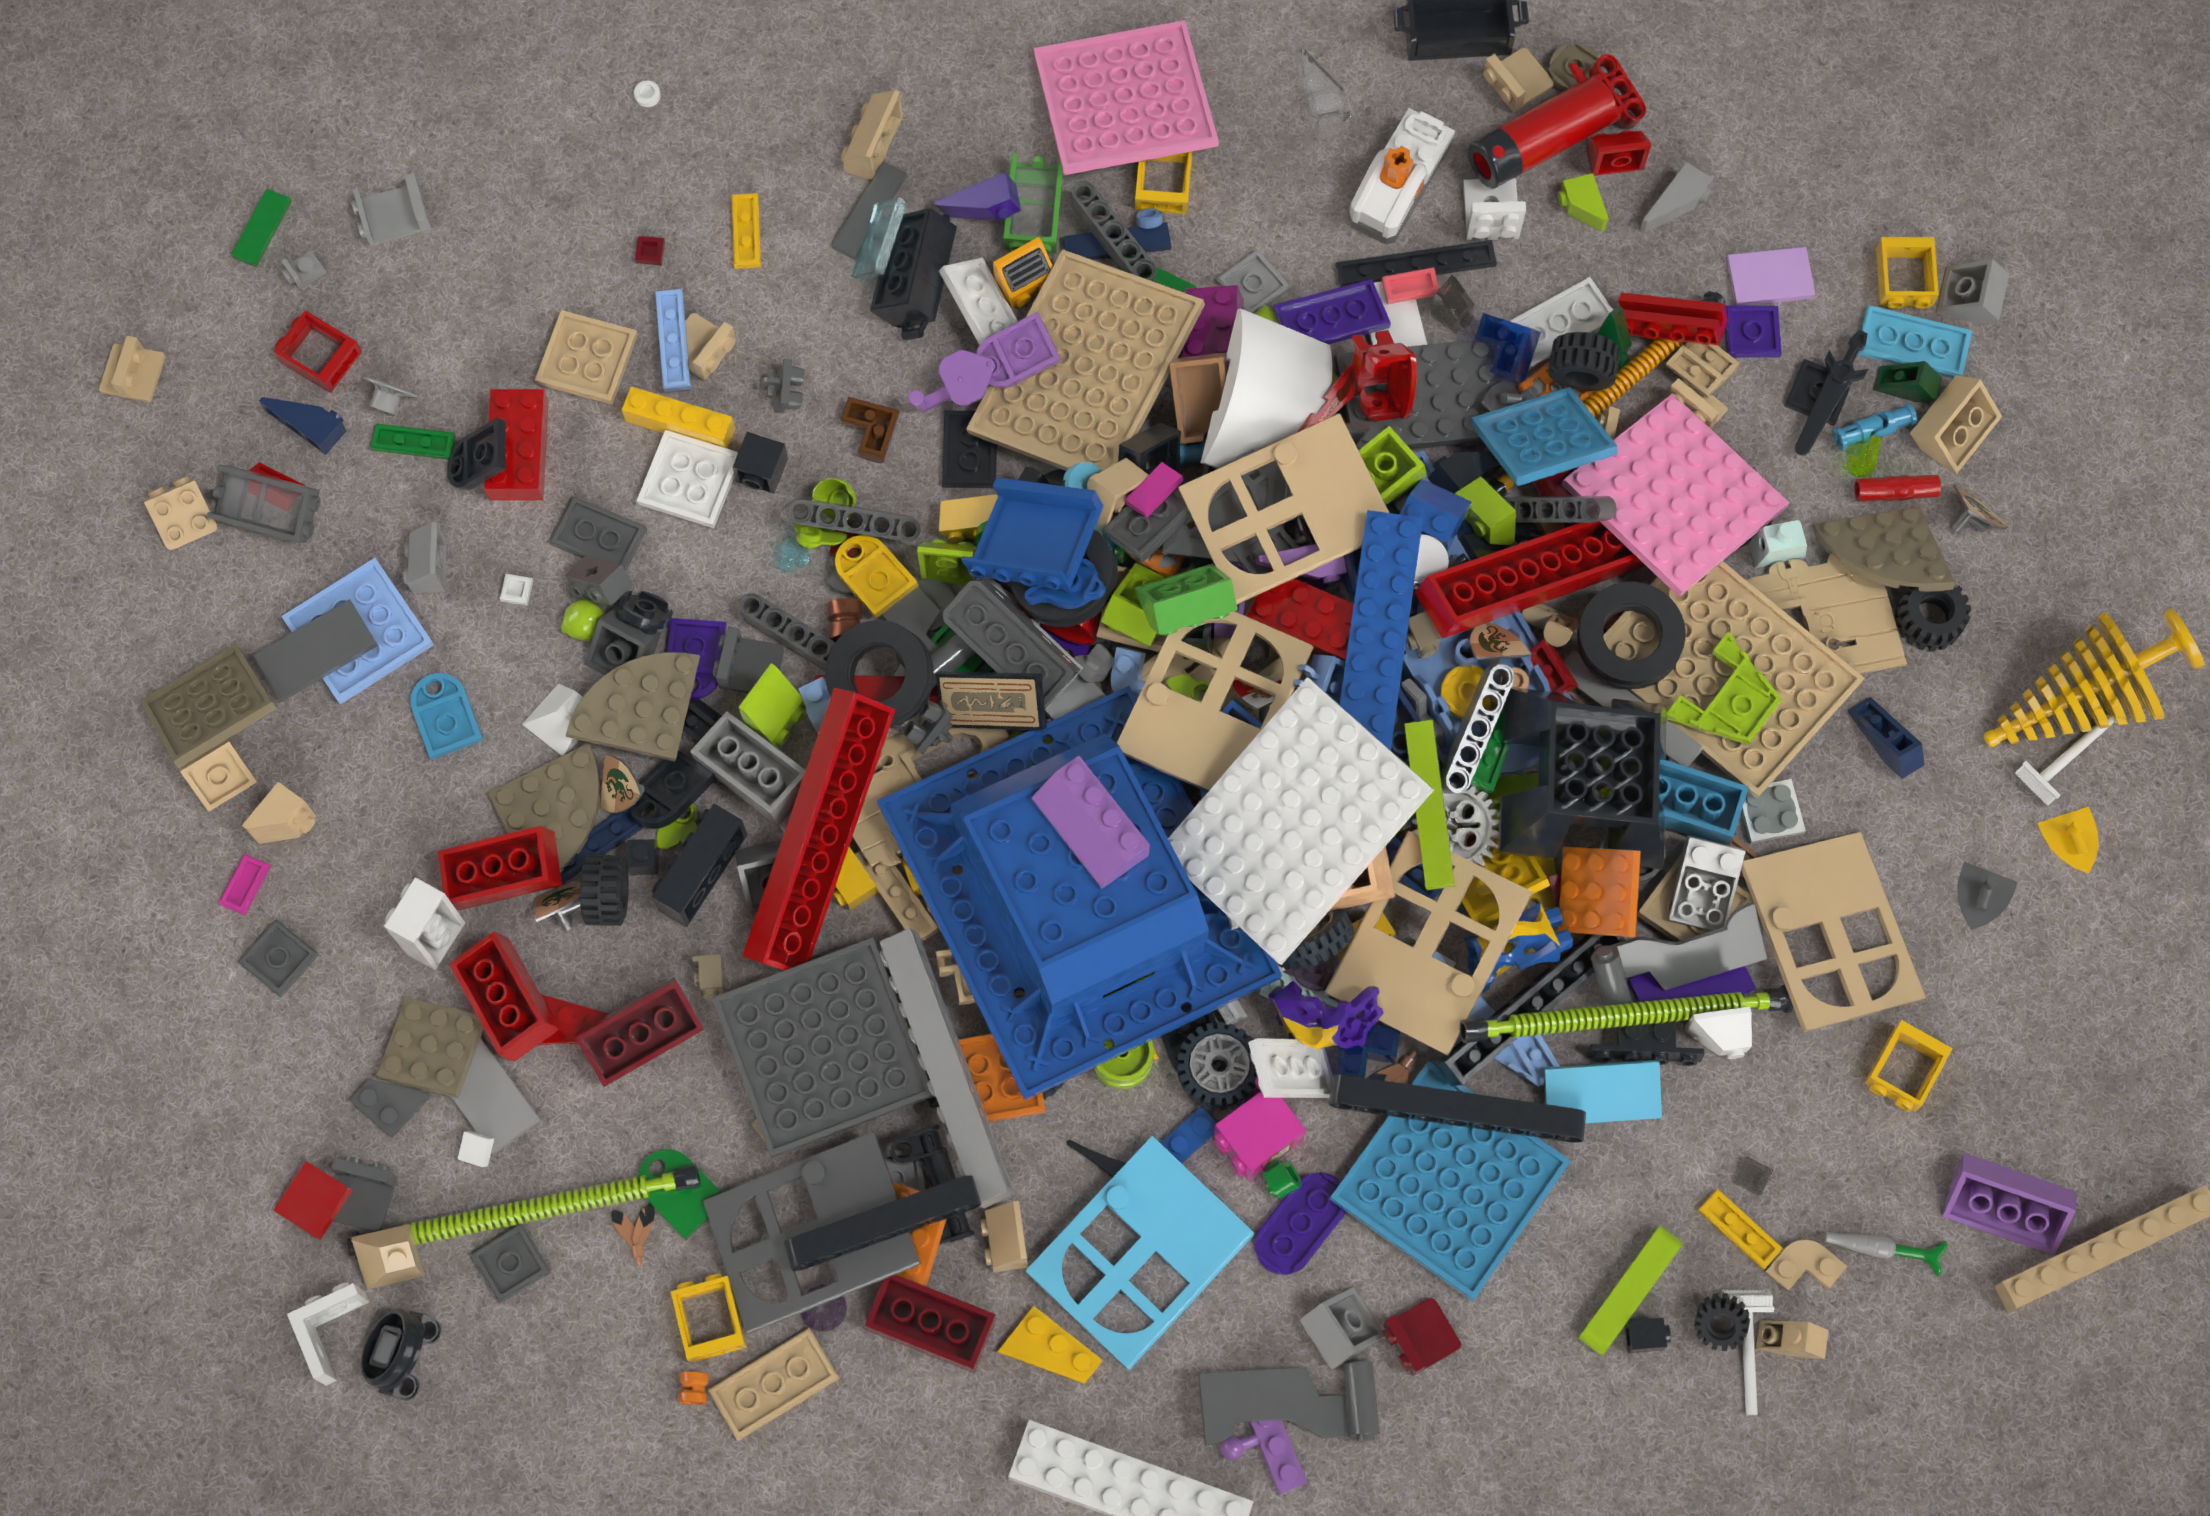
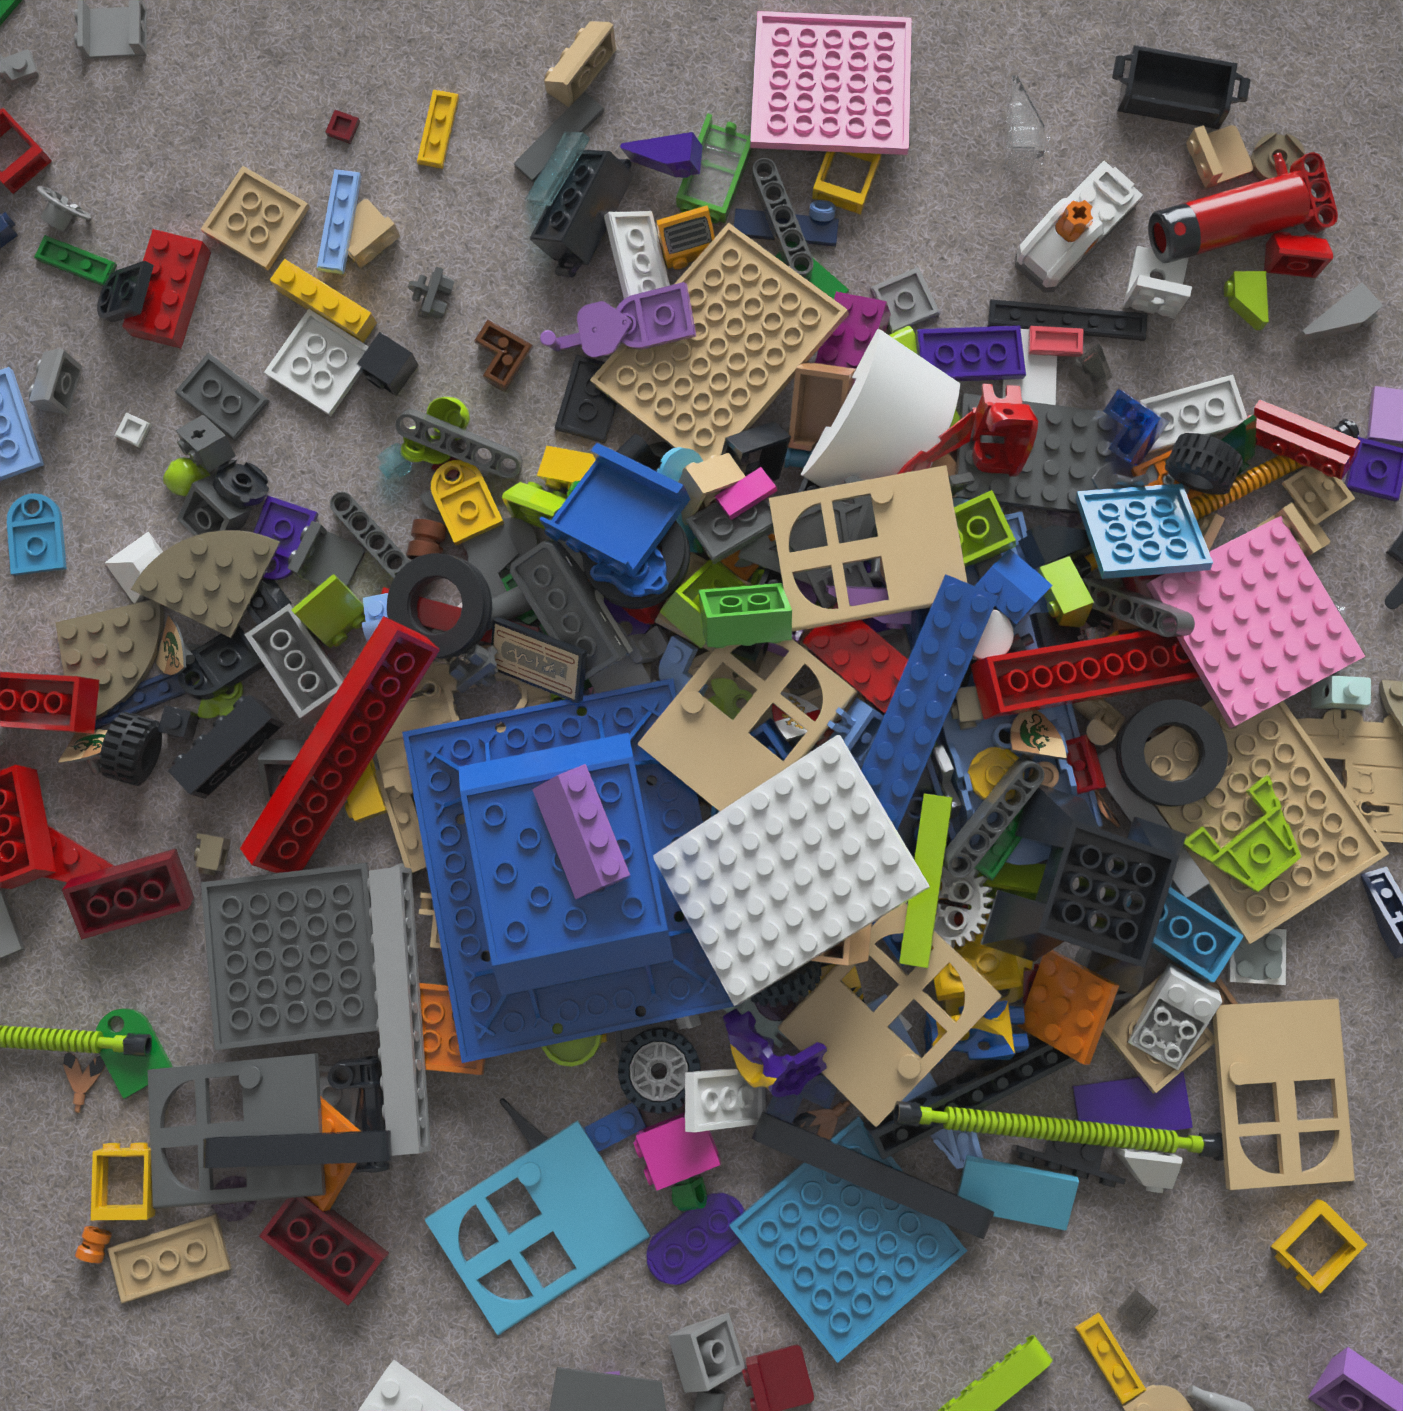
camera: 20 degrees right, 10 degrees up
(1006, 1237) = (416, 1183): tan slope -> none
(1050, 1347) = (431, 1294): yellow wing -> none
(1679, 961) = (1125, 1089): door -> none

